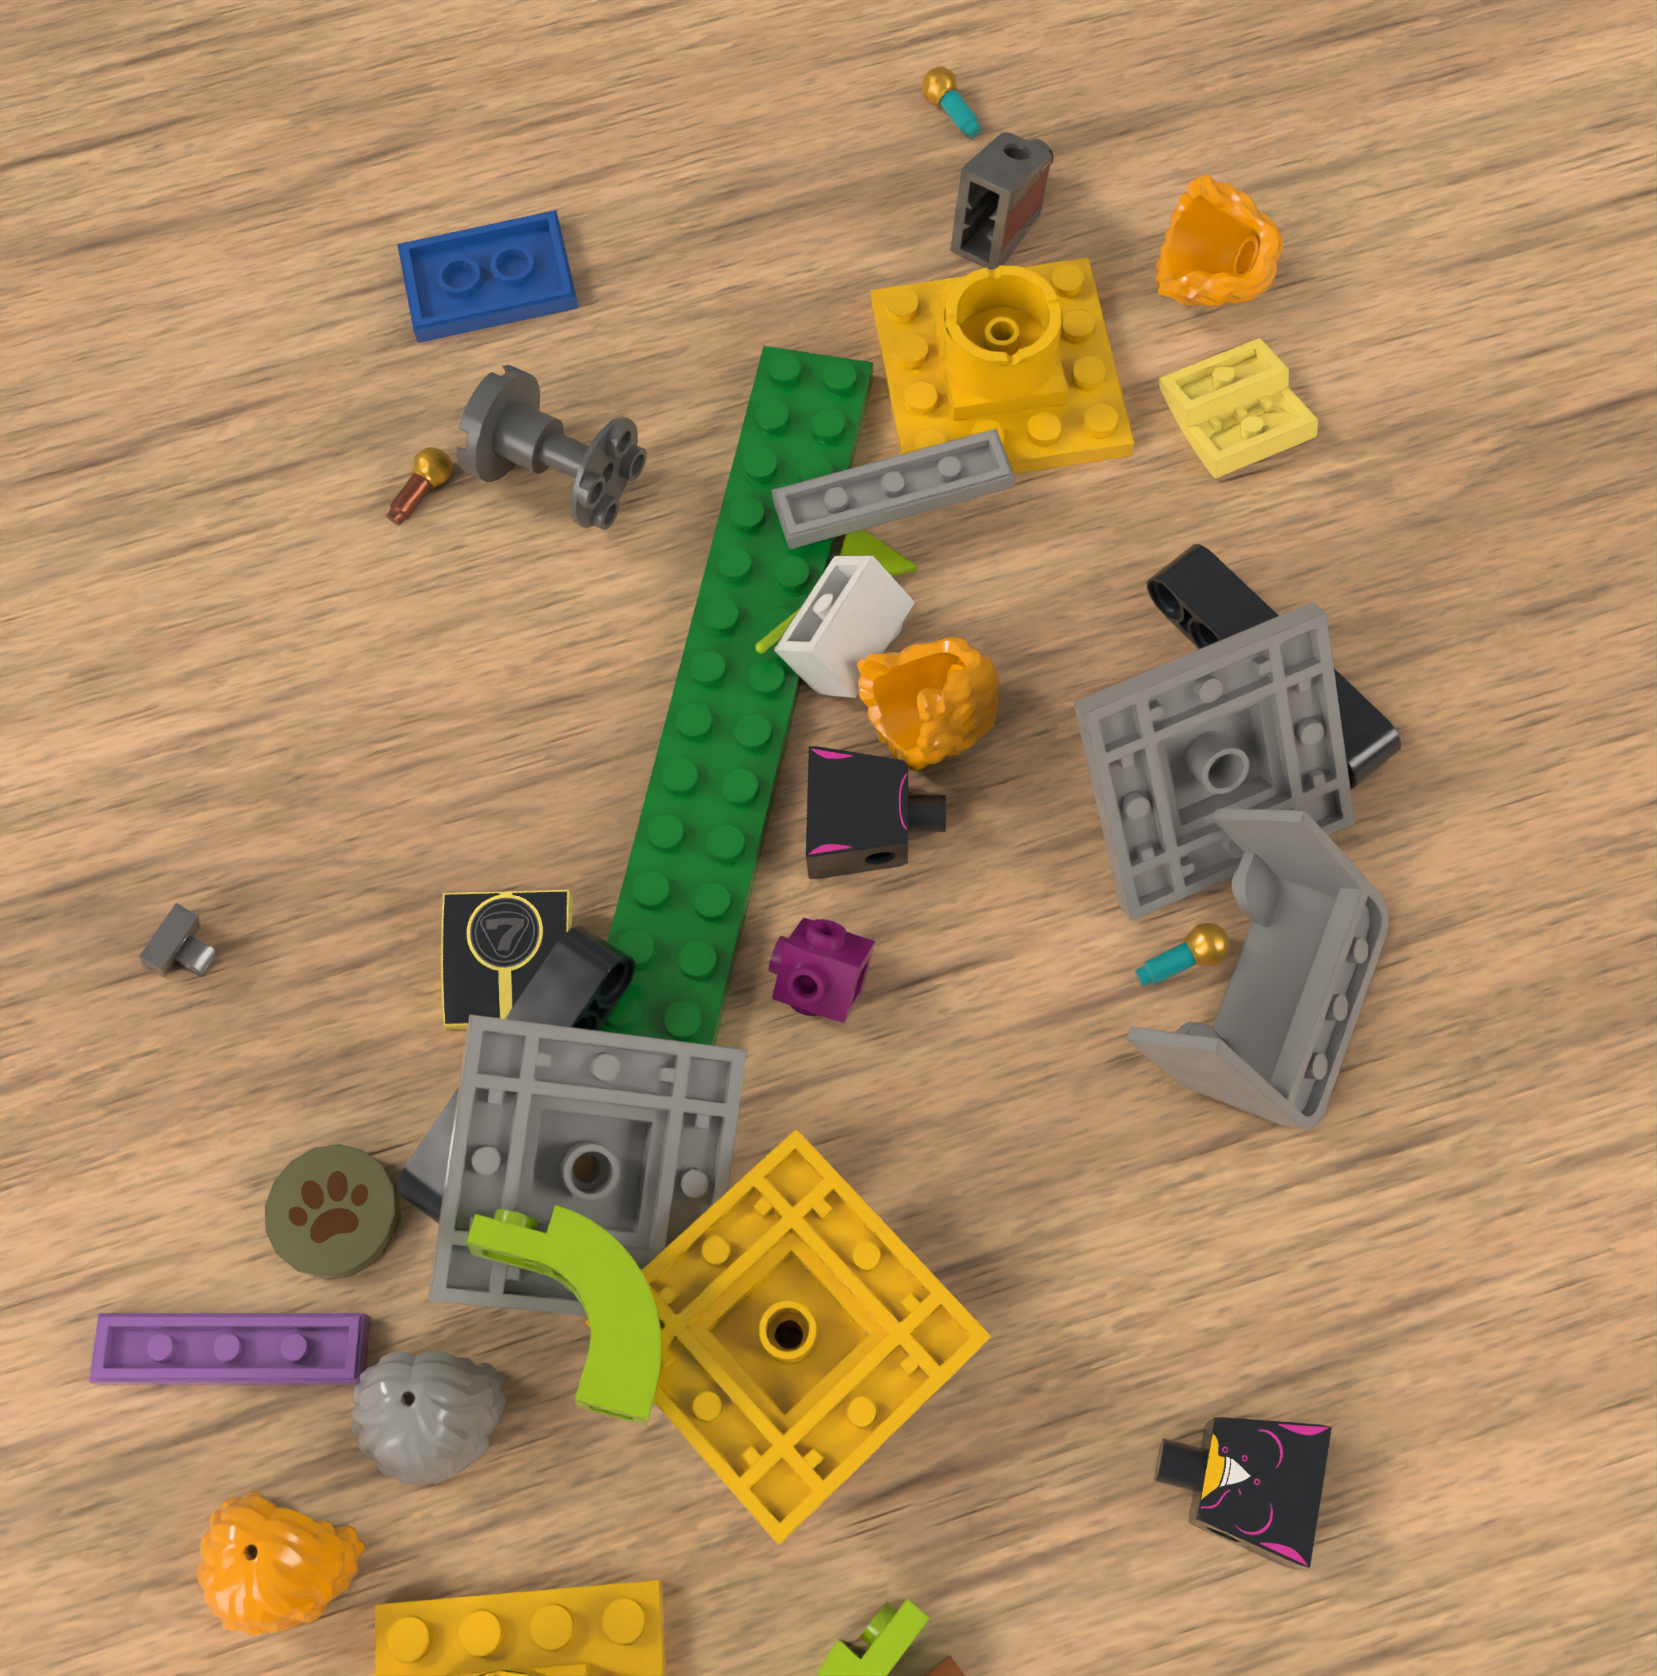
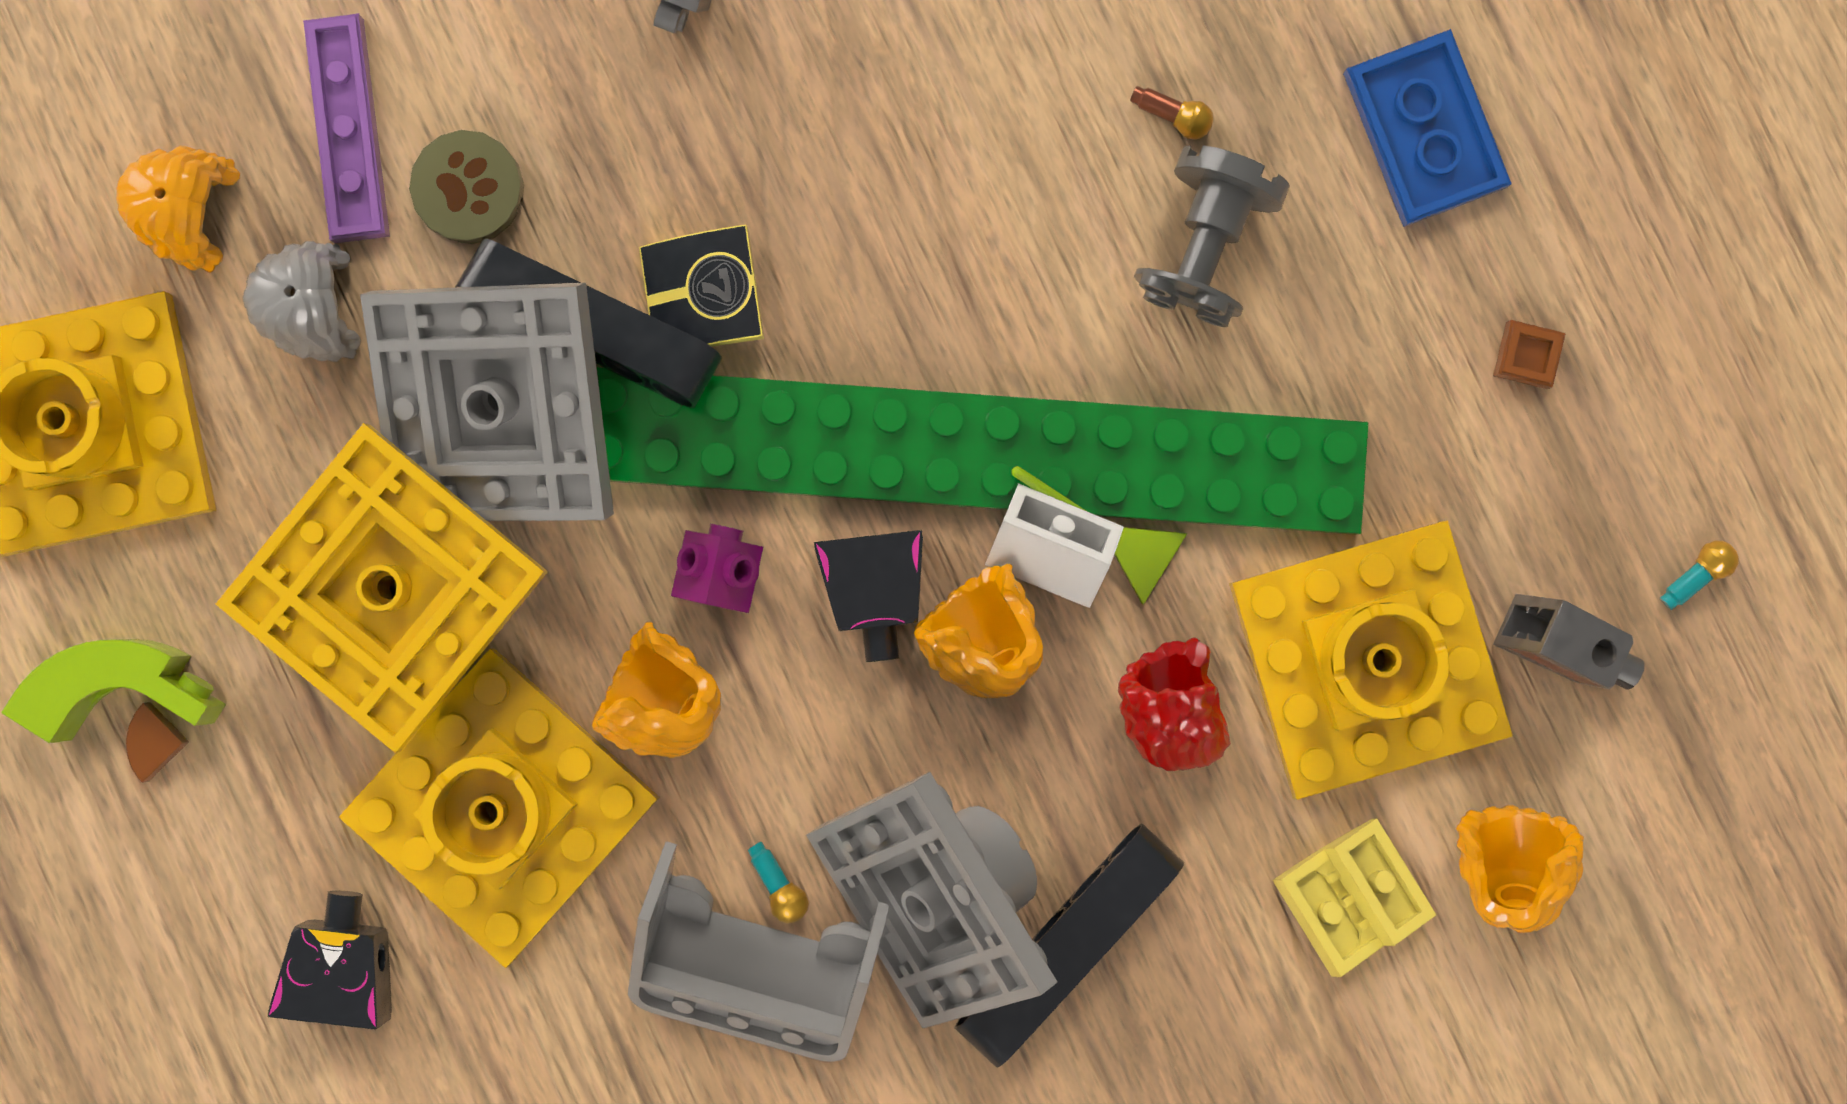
camera: 80 degrees right, 20 degrees up
(621, 1311) = (376, 443): lime arch -> none
(721, 215) = (1529, 354): none -> dark orange tile
(893, 488) = (1208, 573): light grey tile -> none
(957, 1046) = (658, 698): none -> light orange hair
(1034, 536) = (1174, 707): none -> red hair
(1092, 1330) = (555, 797): none -> yellow piece

